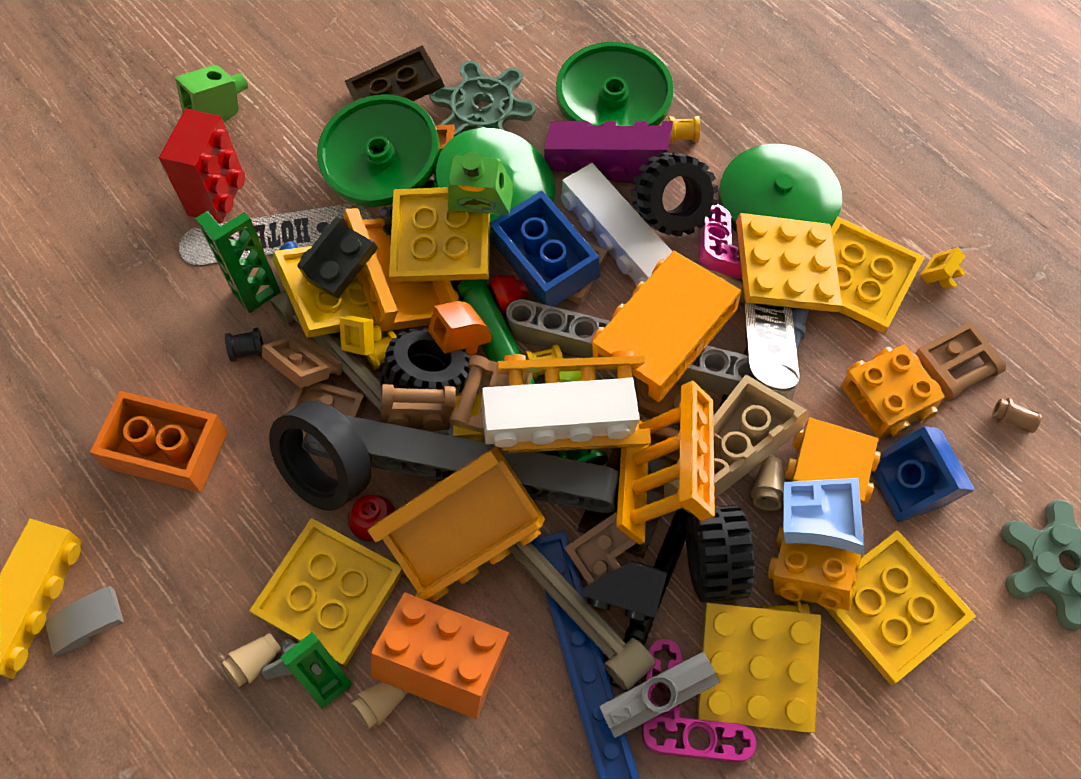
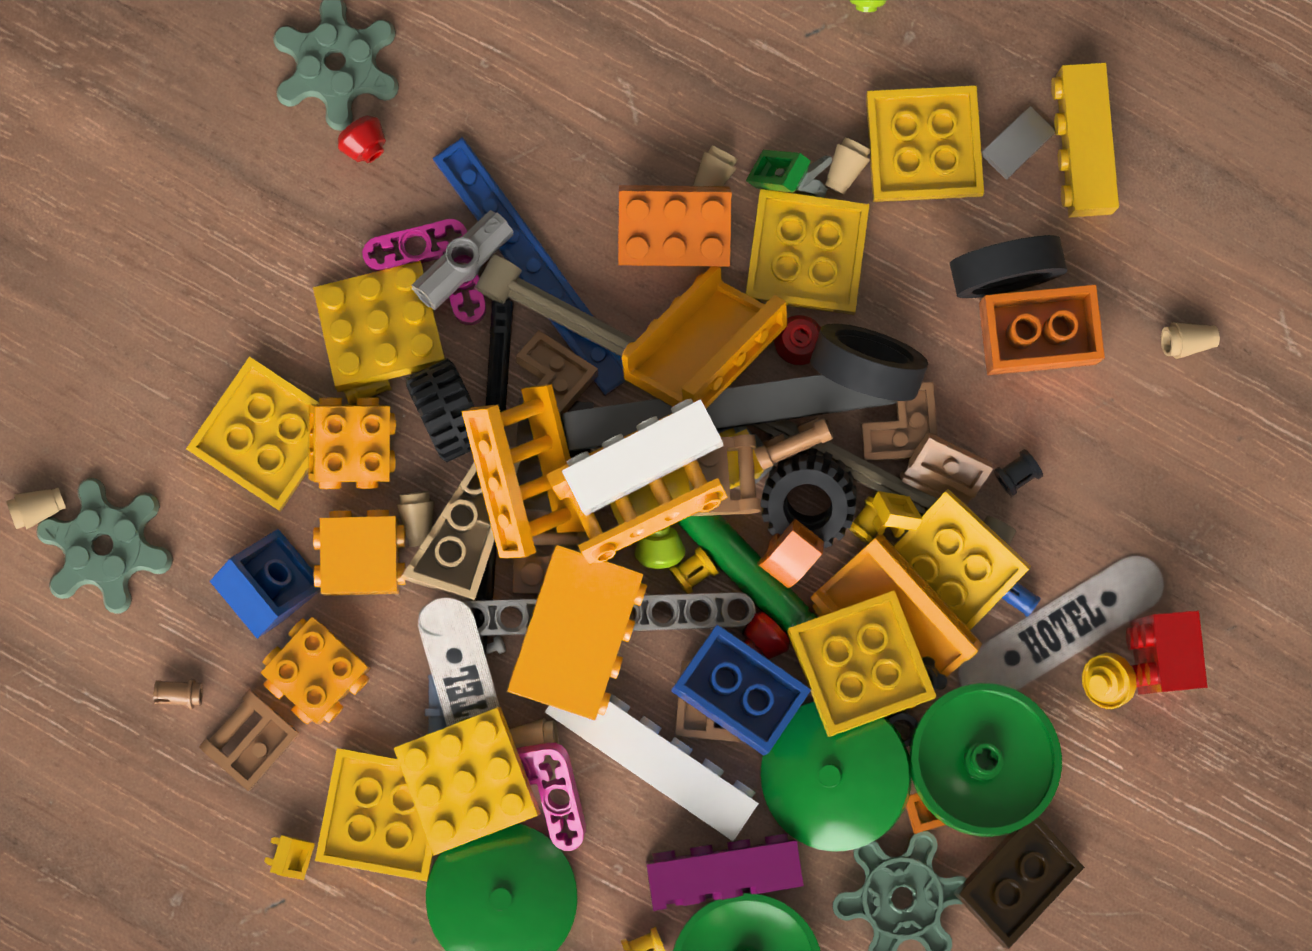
camera: 150 degrees right, 20 degrees up
(48, 398) = (1187, 339): none -> tan cone
(154, 492) = (1008, 266): none -> black tyre
(168, 654) = (924, 143): none -> yellow plate
(211, 91) = (1230, 760): bright green torso -> none
(236, 269) = (1059, 529): green fence -> none
(259, 180) = (1109, 680): none -> yellow plate
(336, 257) = (953, 580): pearl dark grey bracket -> none
(479, 185) = (832, 712): bright green torso -> none
(631, 587) = (522, 345): black slope -> none
(697, 199) = (621, 820): black tyre -> none
(824, 513) = (358, 479): light blue plate -> none

